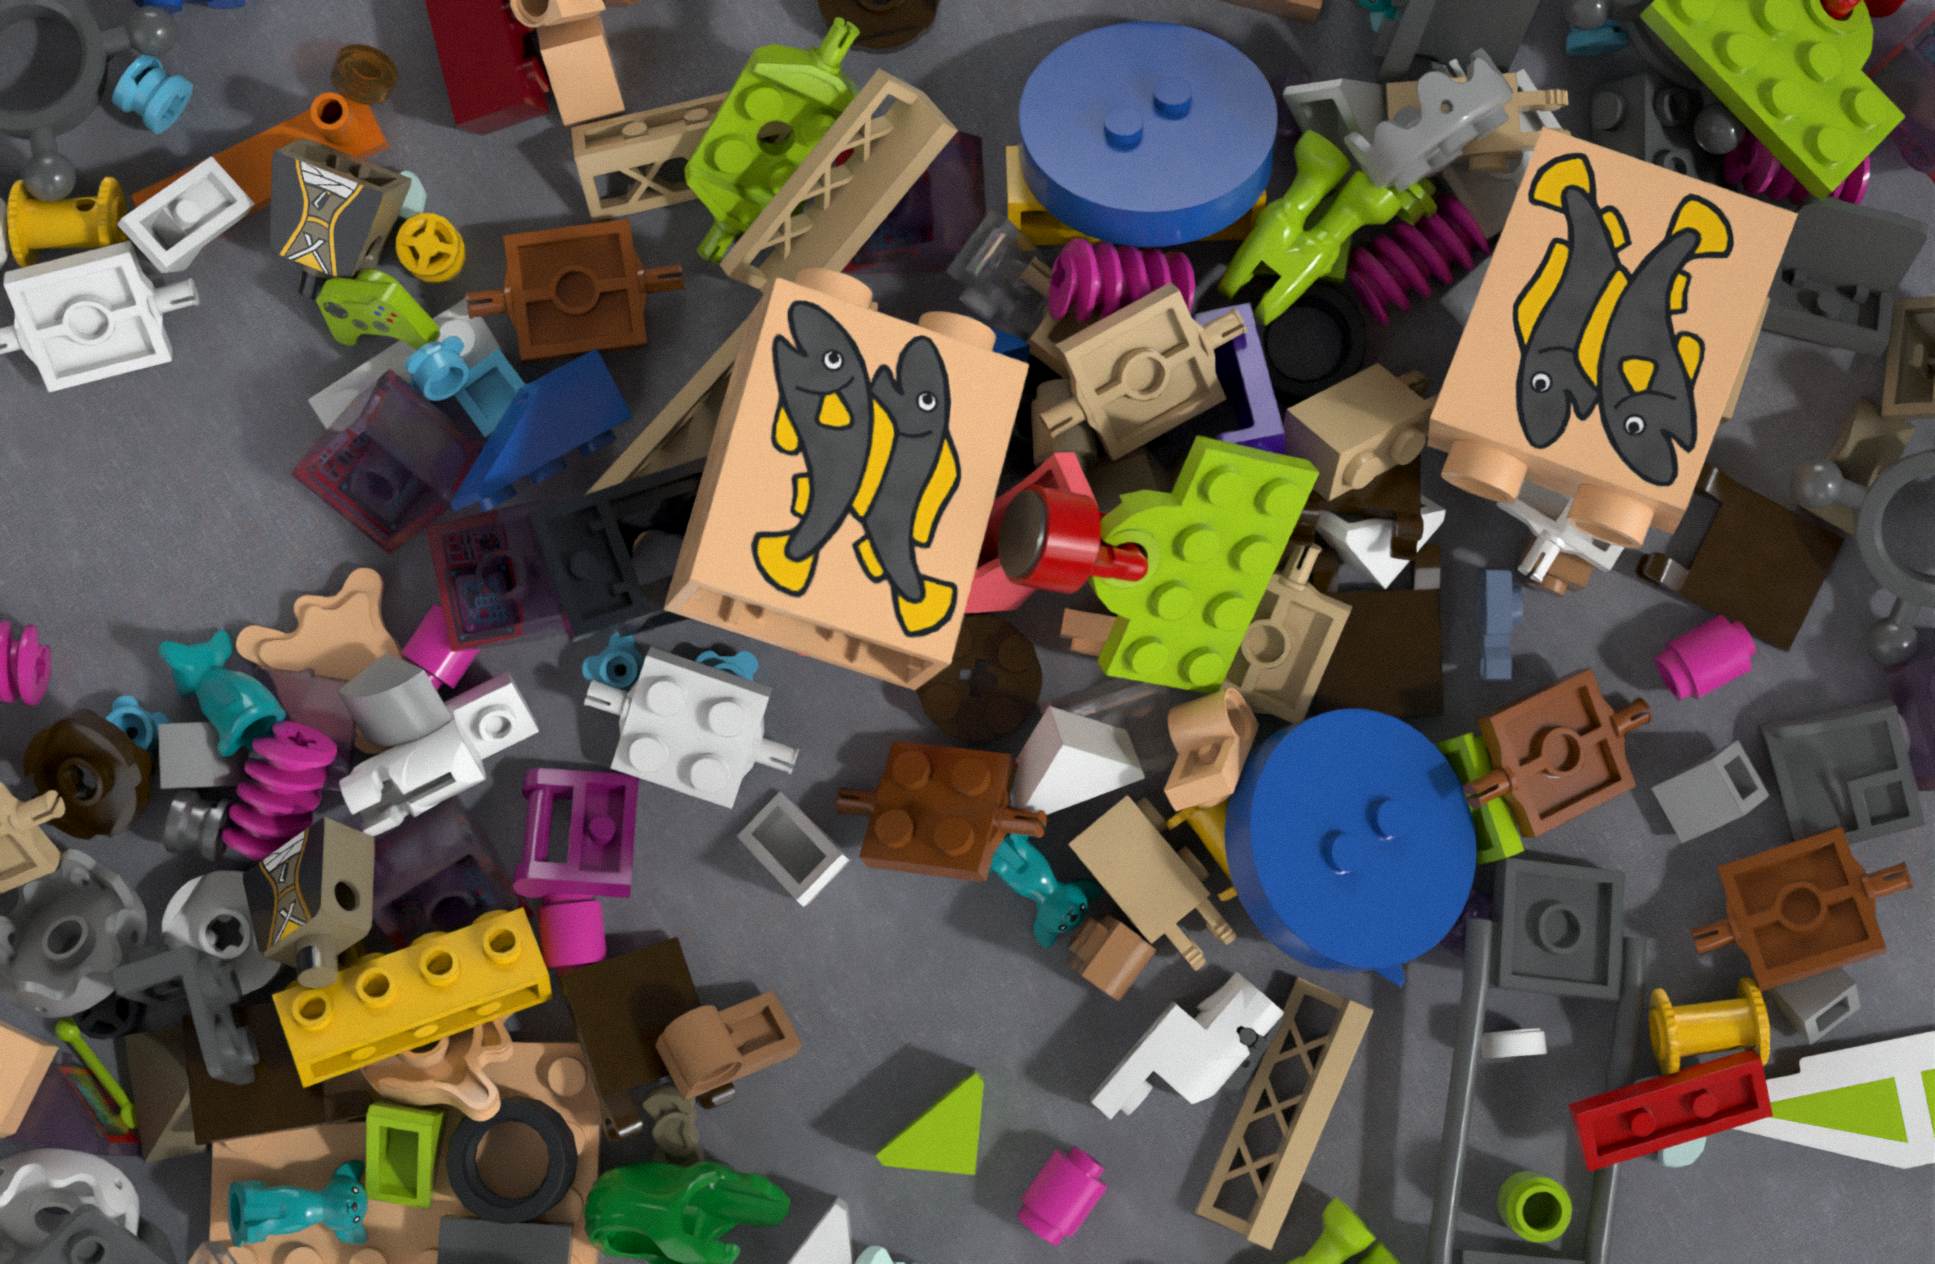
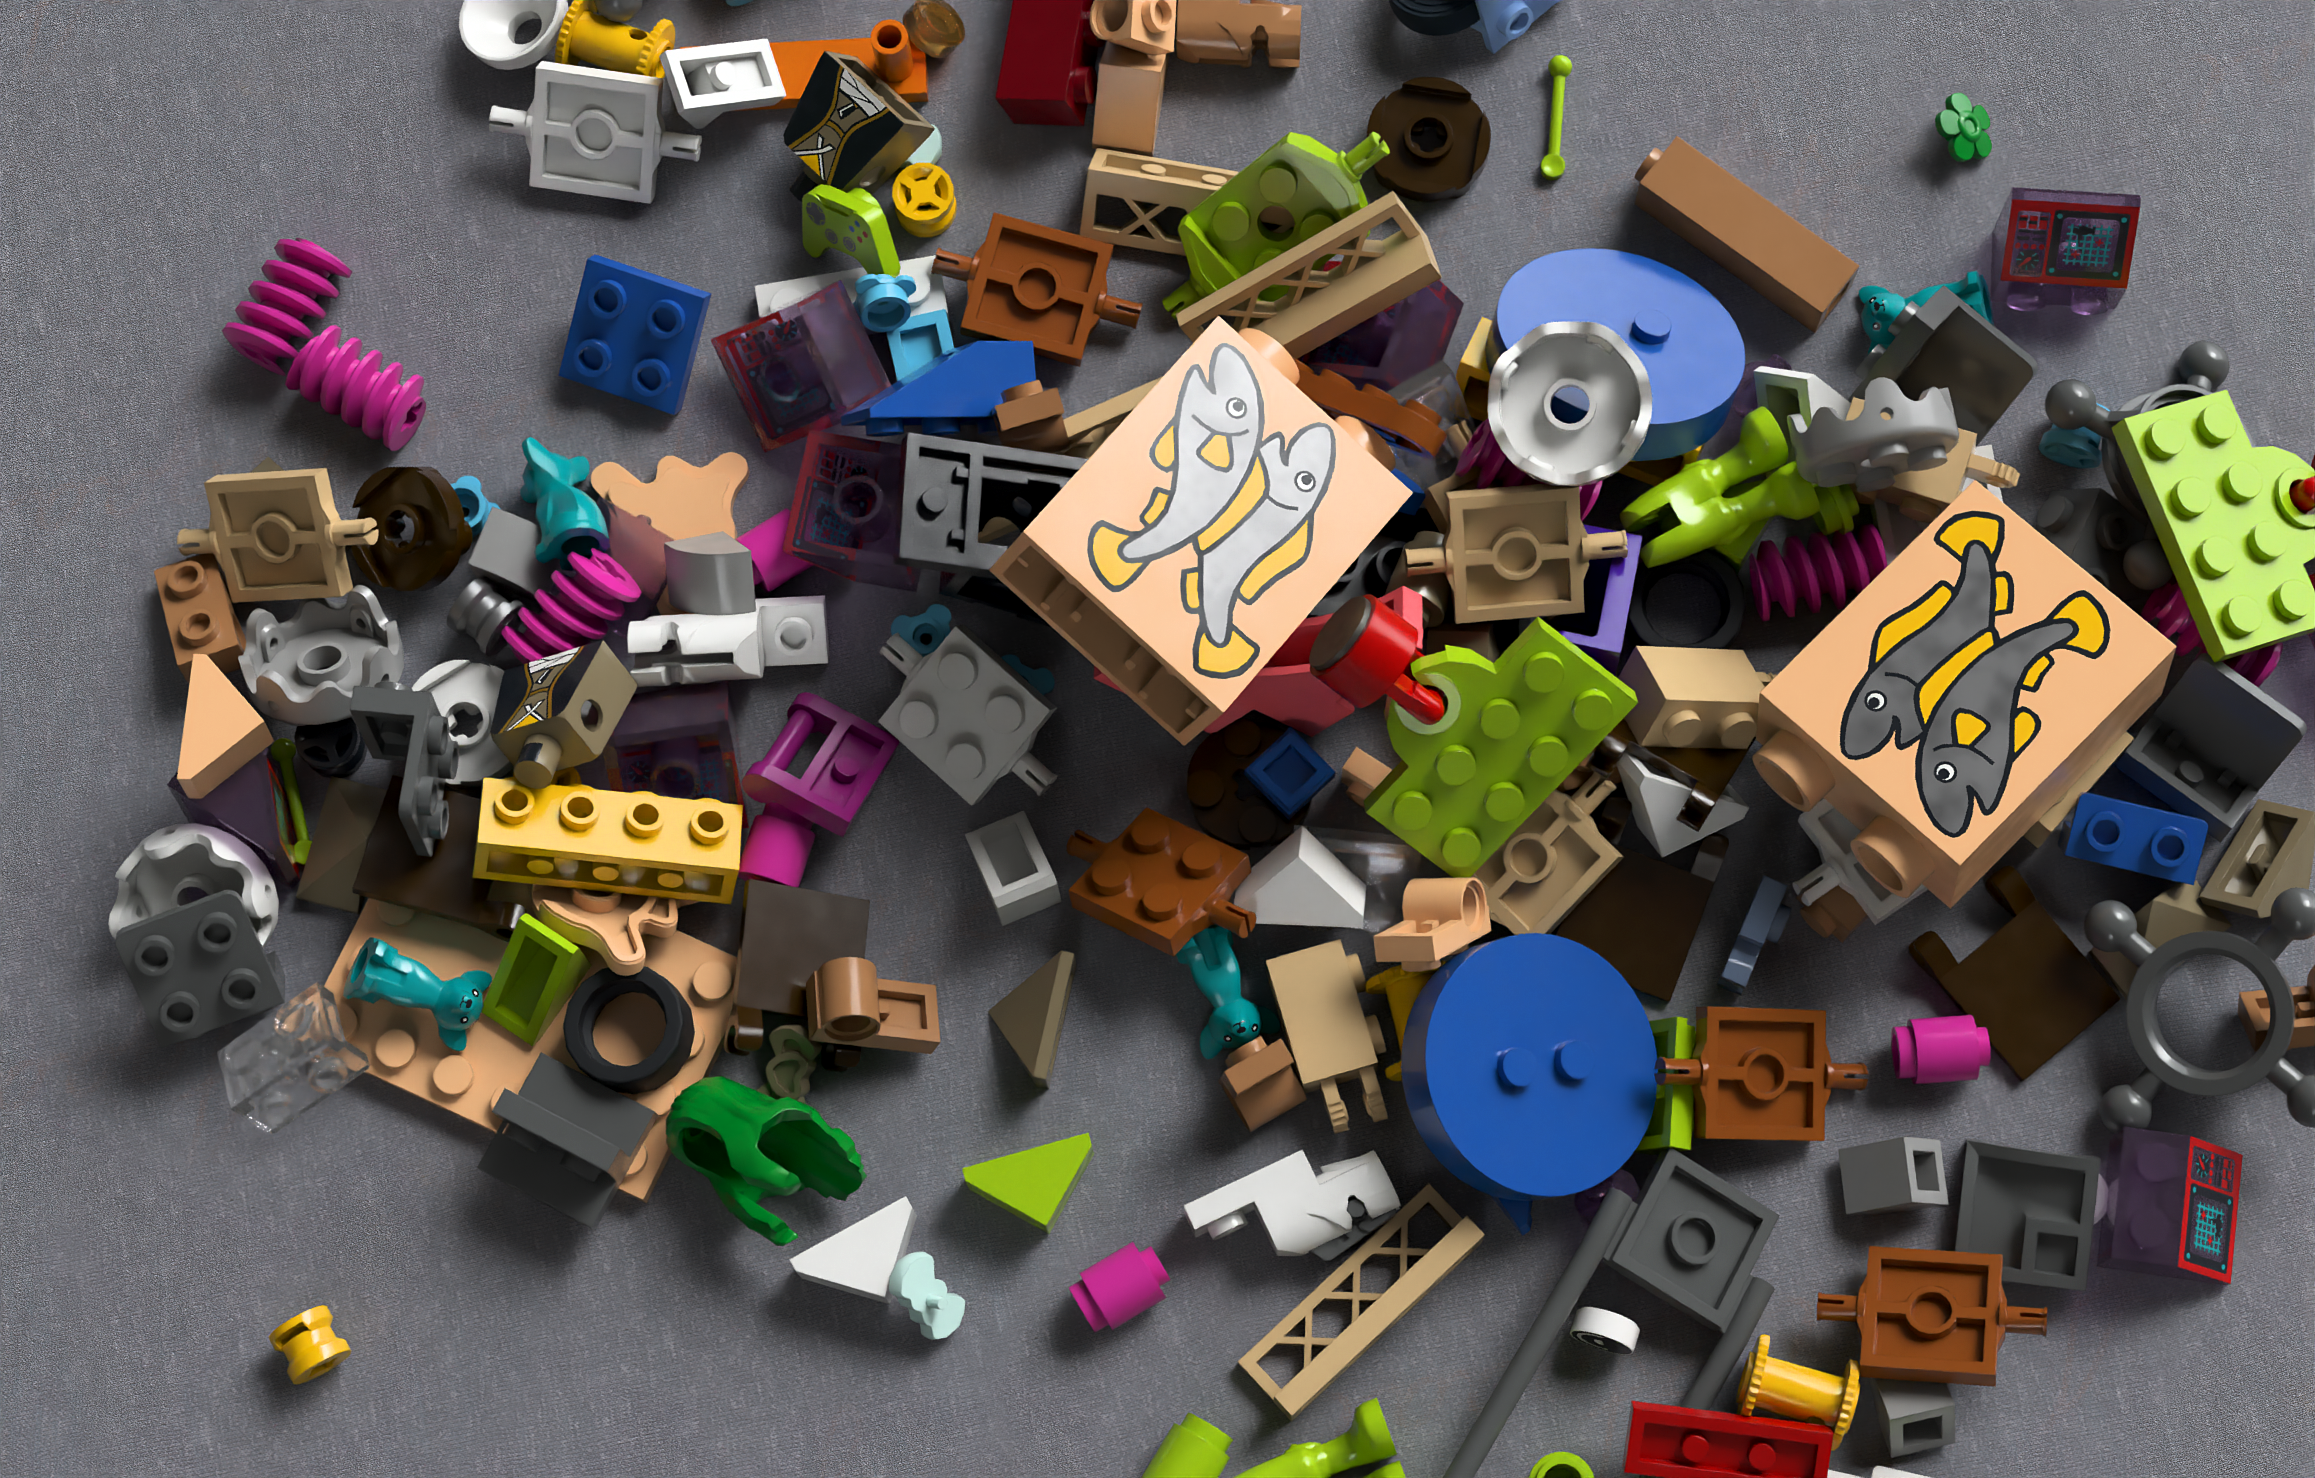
camera: 30 degrees right, 10 degrees down
(215, 497) = (634, 334): none -> blue plate
(632, 435) = (1031, 419): none -> medium nougat plate
(876, 981) = (1035, 1016): none -> dark tan slope
(949, 292) = (1406, 427): none -> dark orange plate
(1013, 657) = (1289, 773): none -> blue tile
(1187, 227) = (1558, 358): none -> white plate
(1806, 392) = (2134, 837): none -> blue bracket

